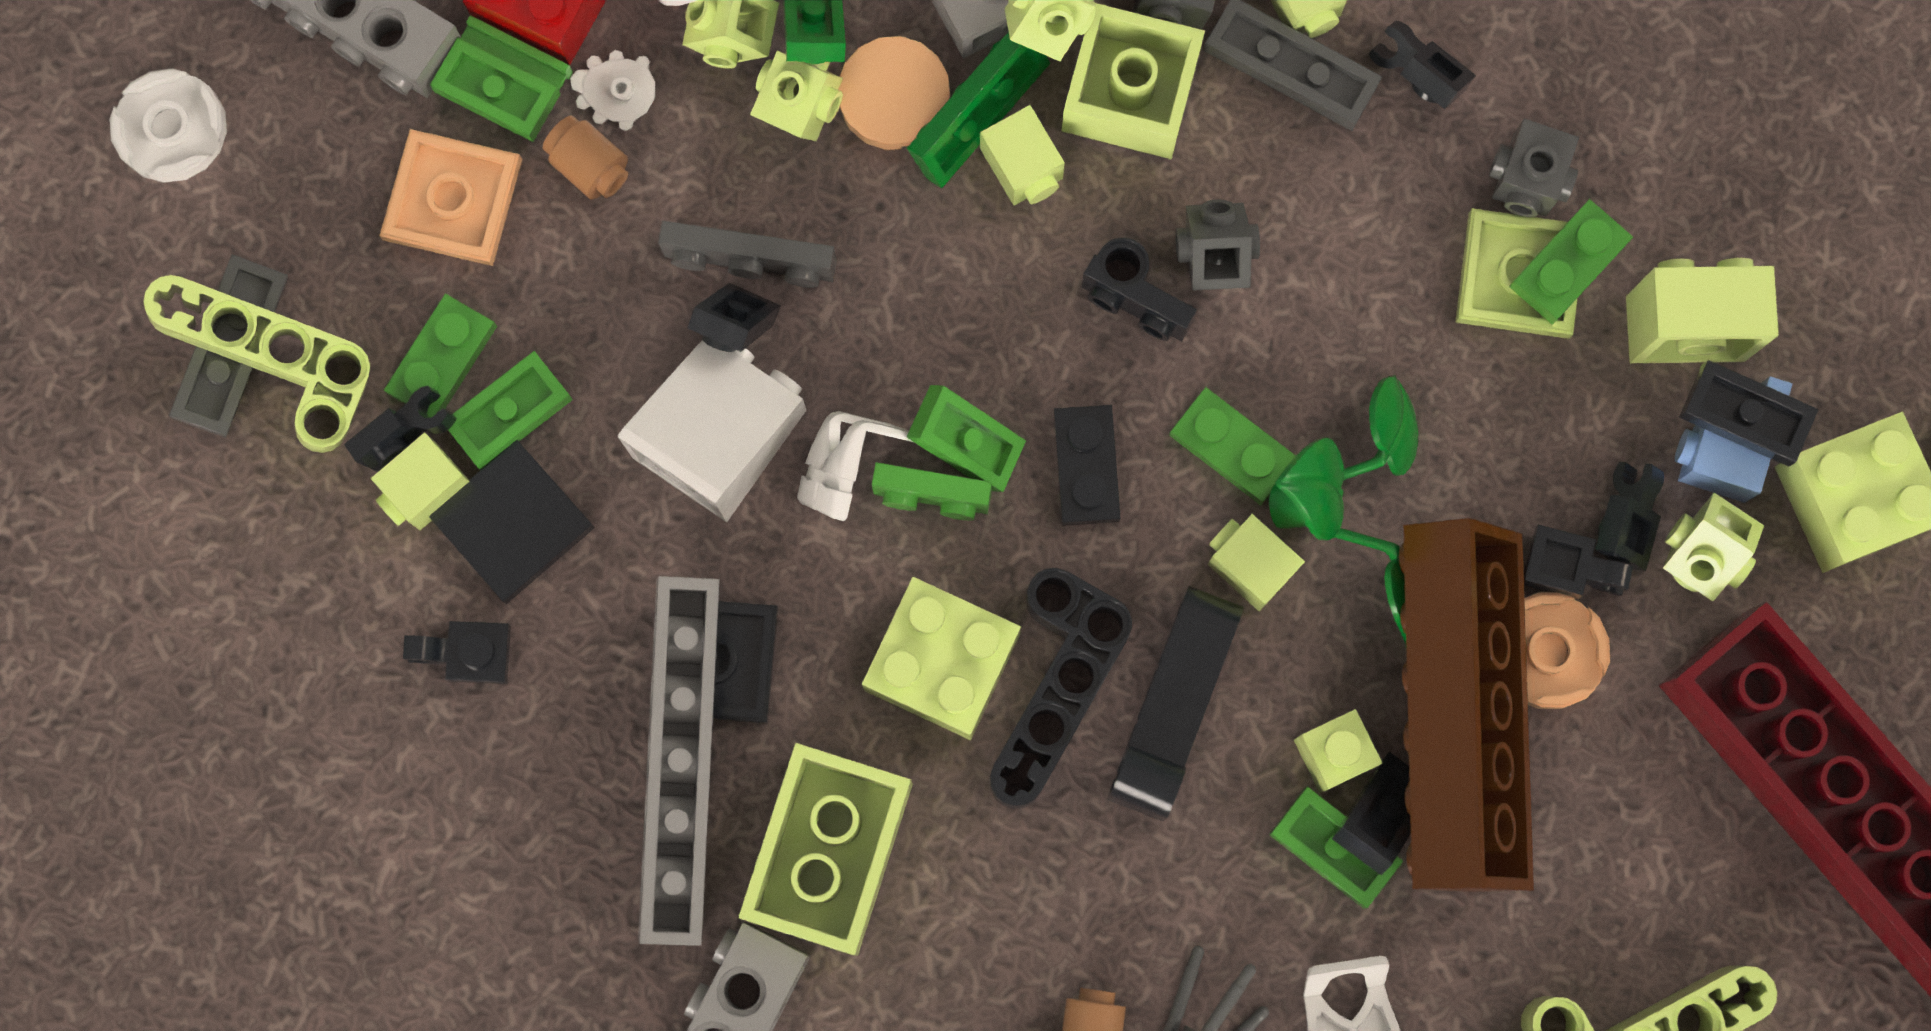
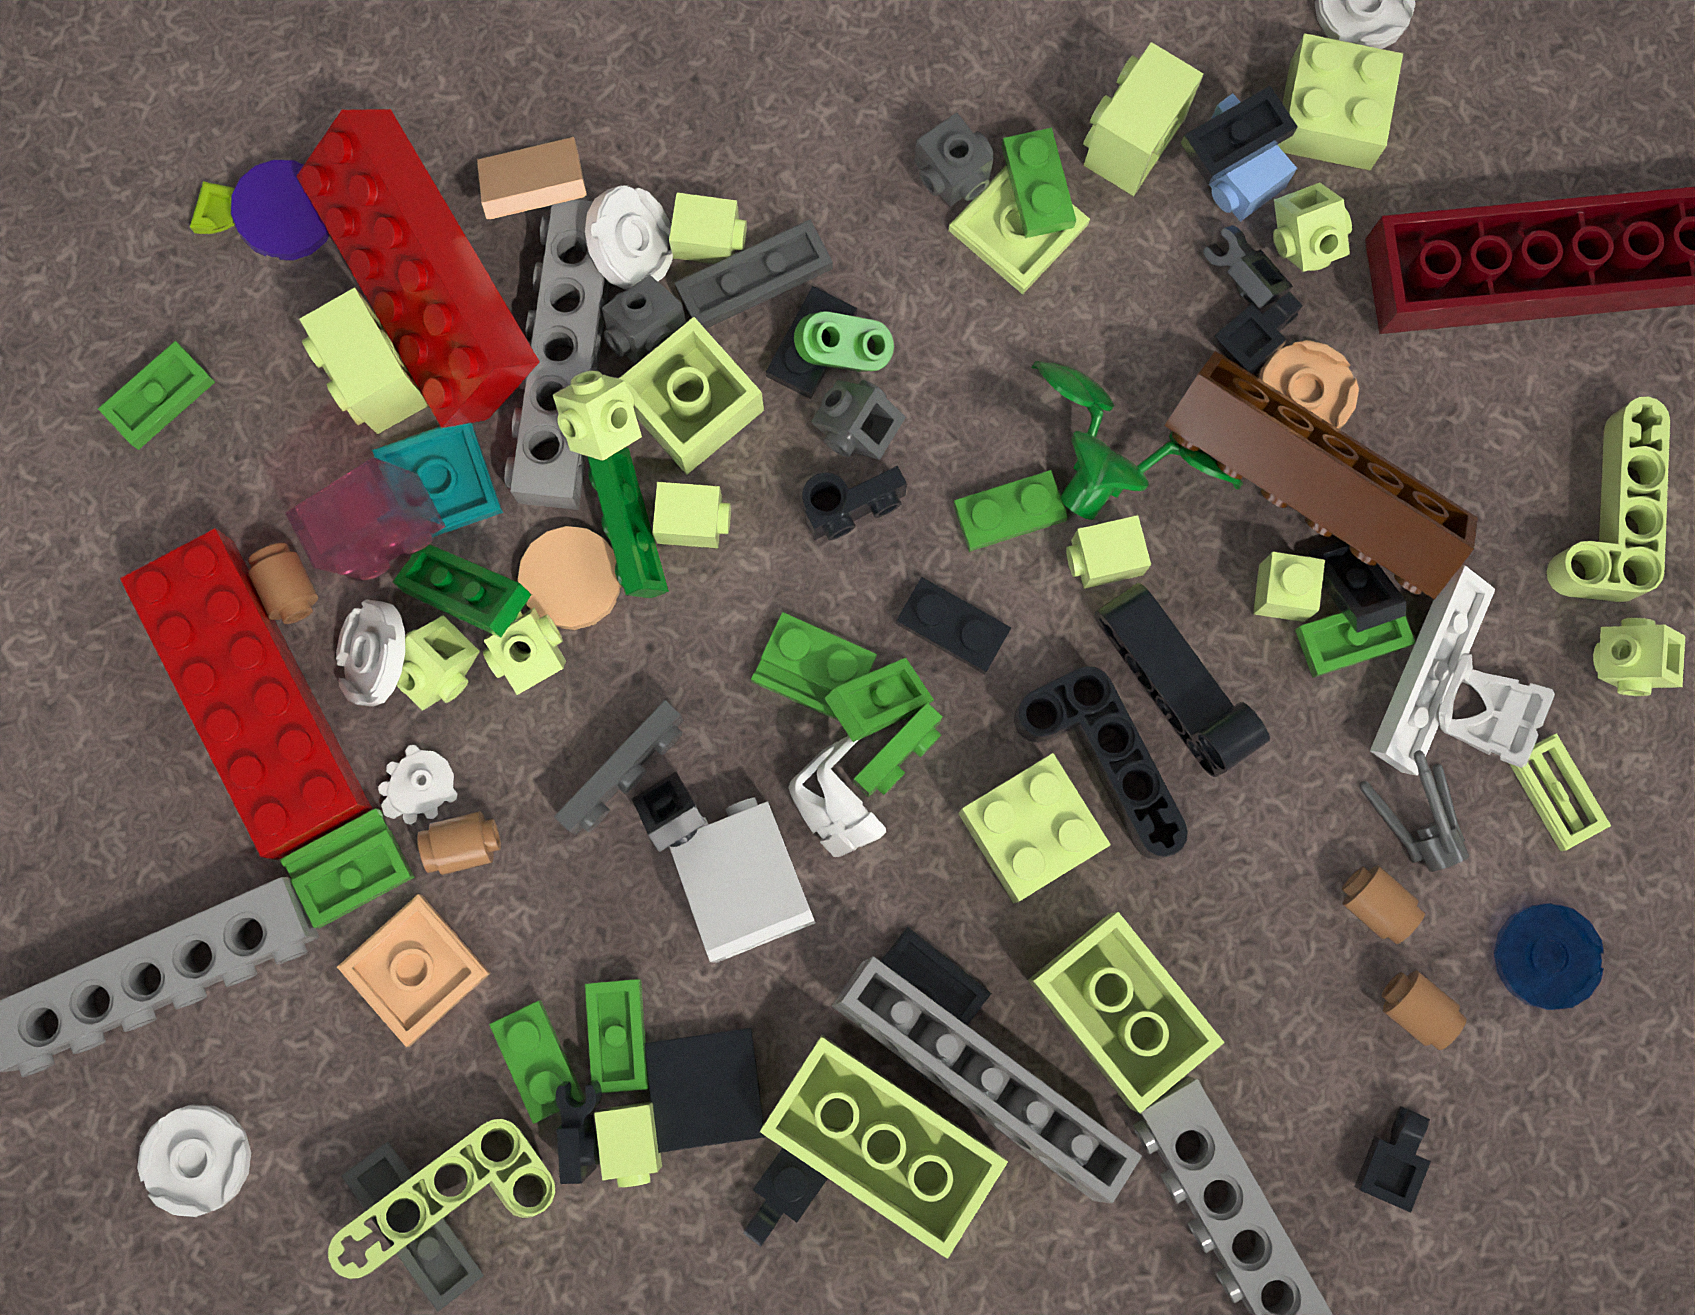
camera: 60 degrees left, 0 degrees up
(562, 706) = (884, 1146): none -> yellowish green brick
(962, 352) = (809, 663): none -> bright green plate
(1267, 158) = (787, 365): none -> black plate
(1286, 187) = (847, 344): none -> plate
(1403, 932) = (1430, 668): none -> white plate
(1428, 67) = (826, 183): black plate -> none

